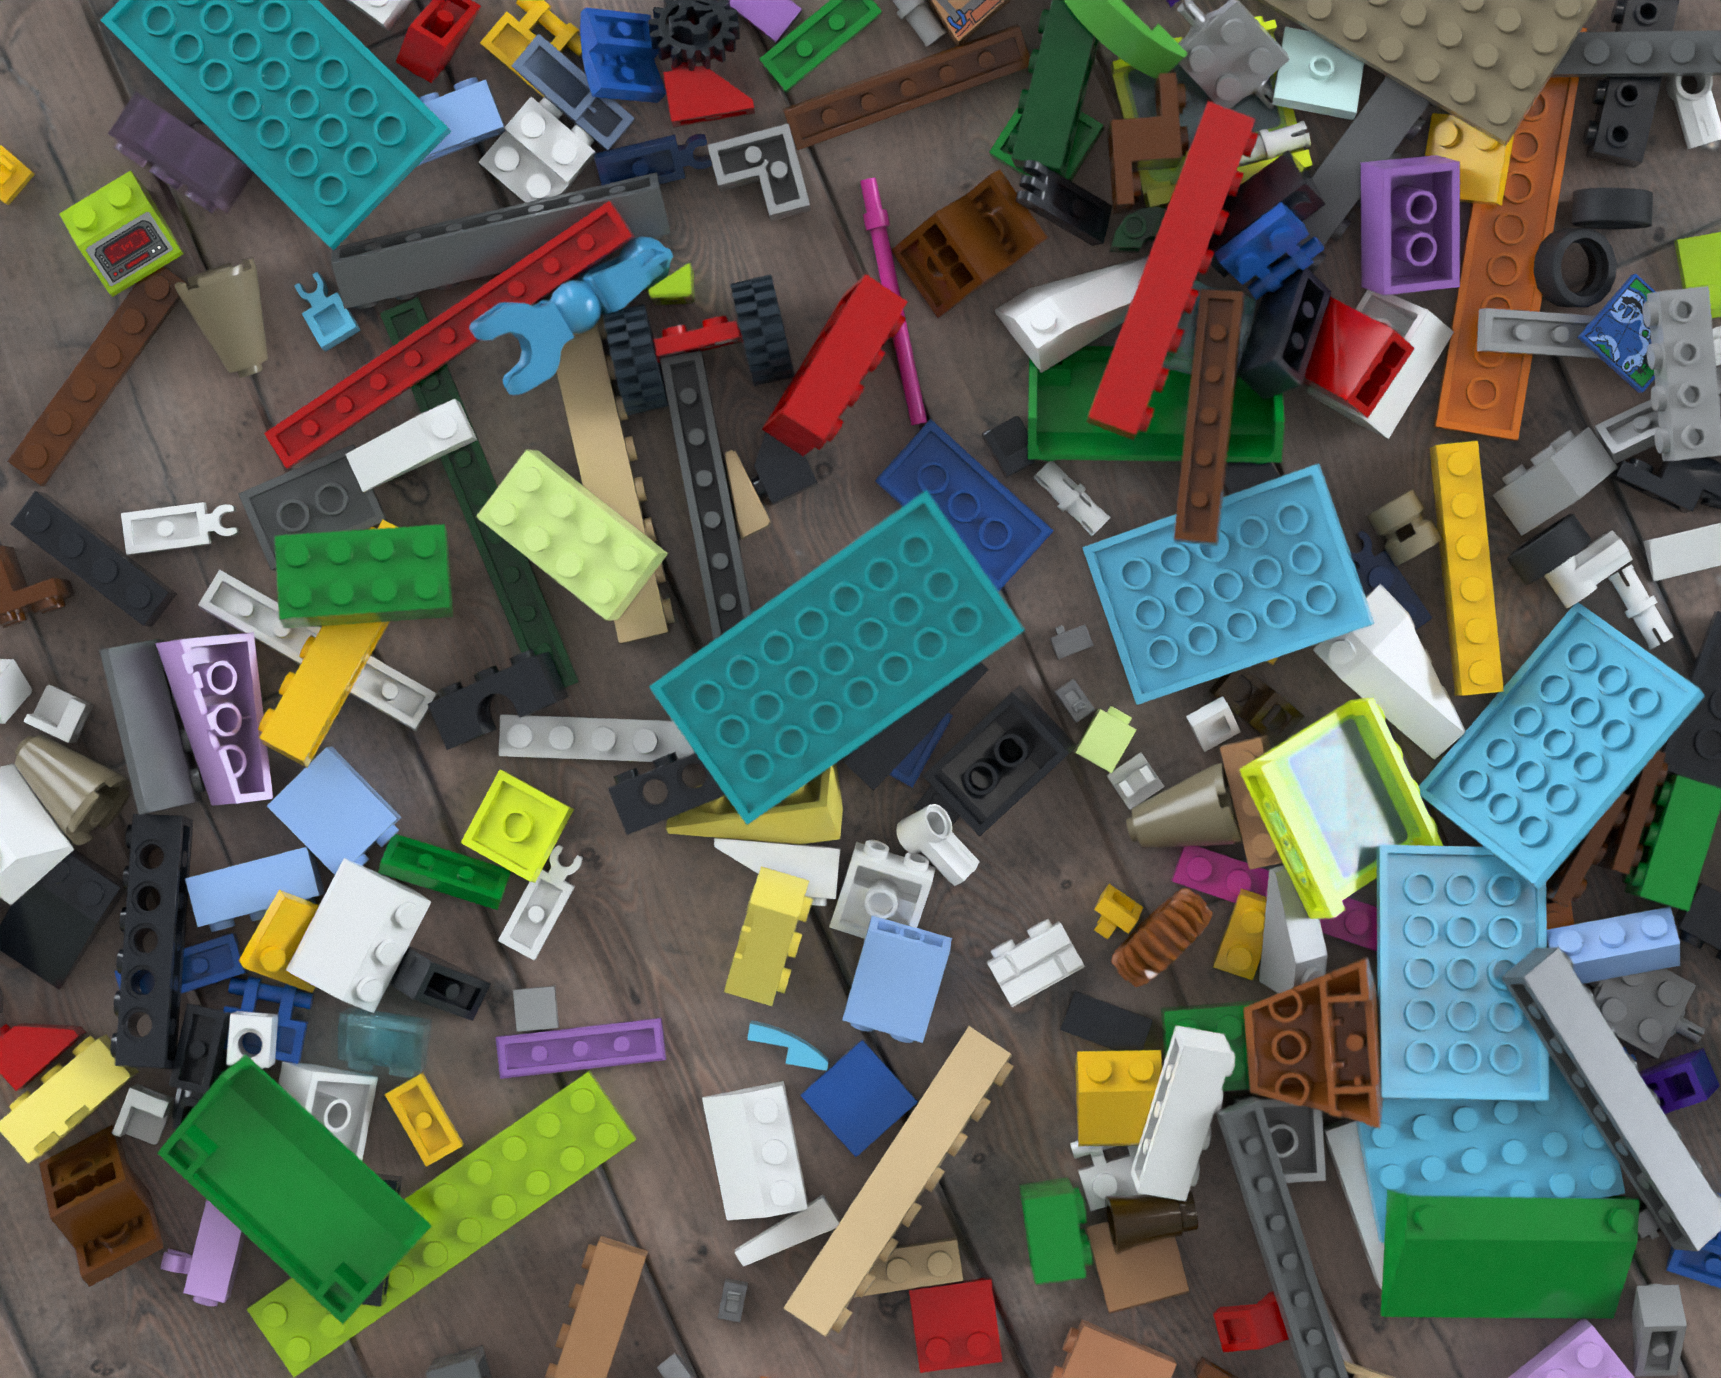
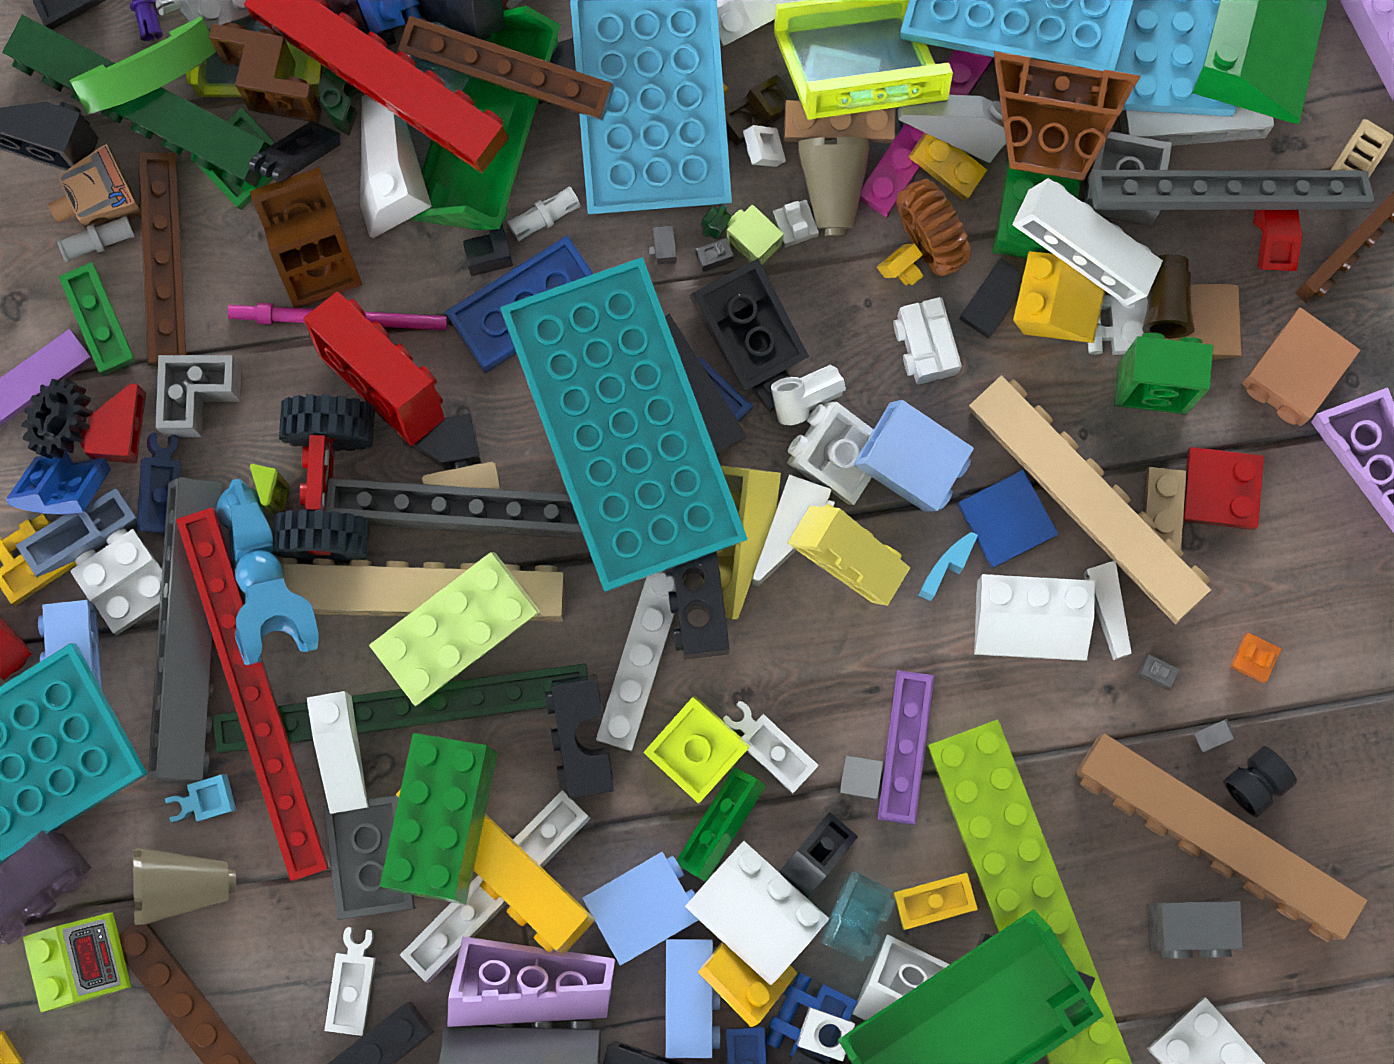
camera: 70 degrees left, 10 degrees down
(1111, 692) = (715, 221): none -> dark green plate

